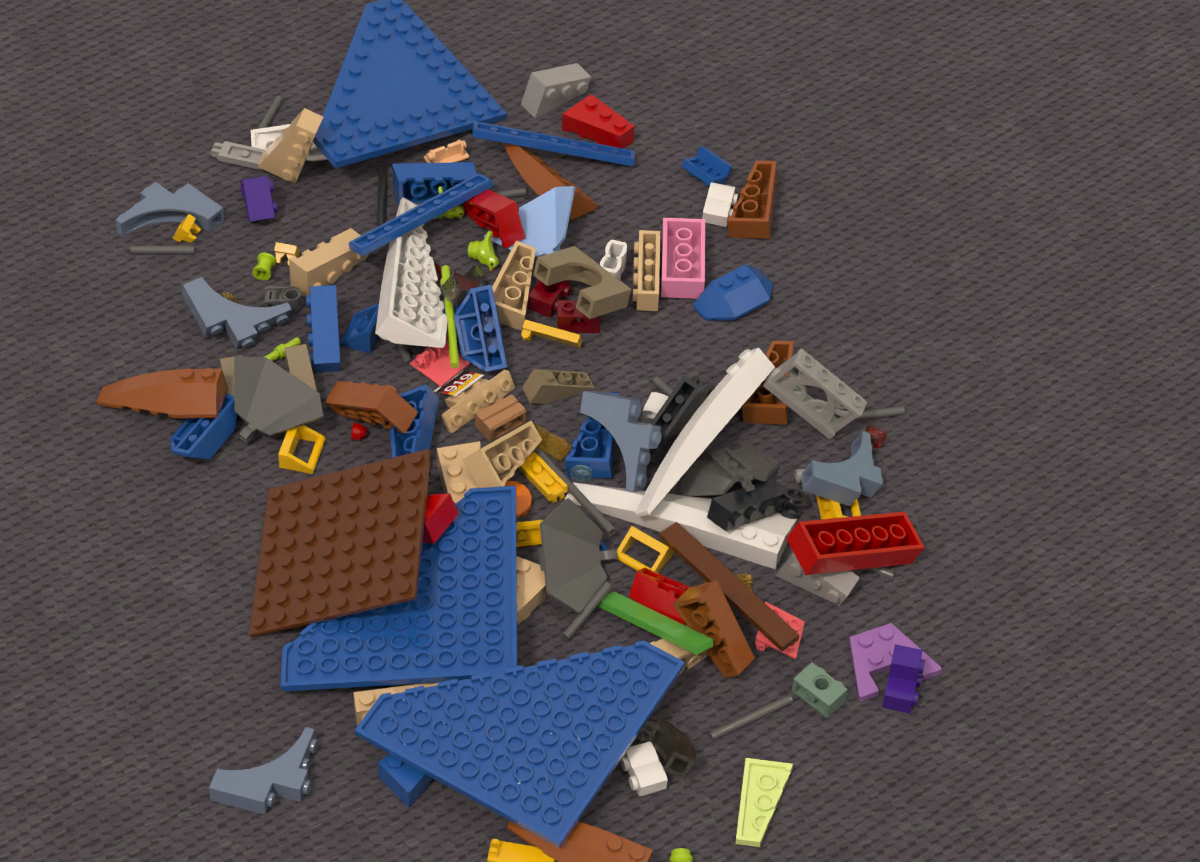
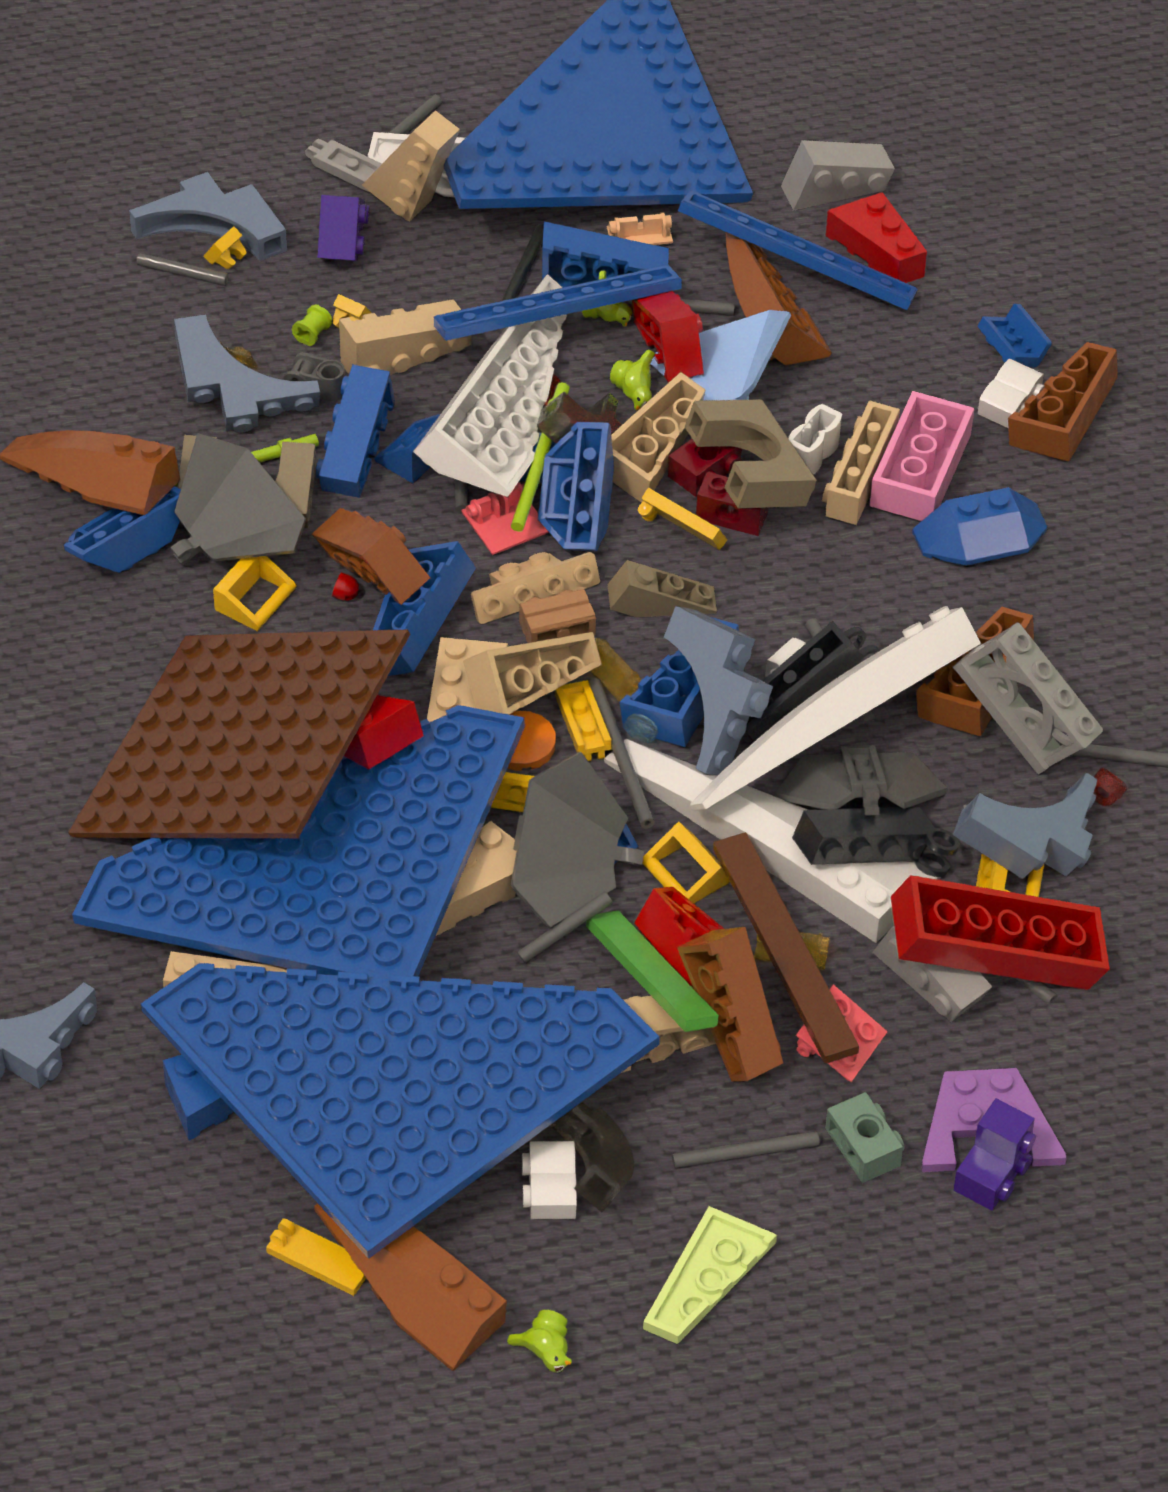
camera: 20 degrees right, 0 degrees up
(459, 383) = (518, 555): sticker -> none

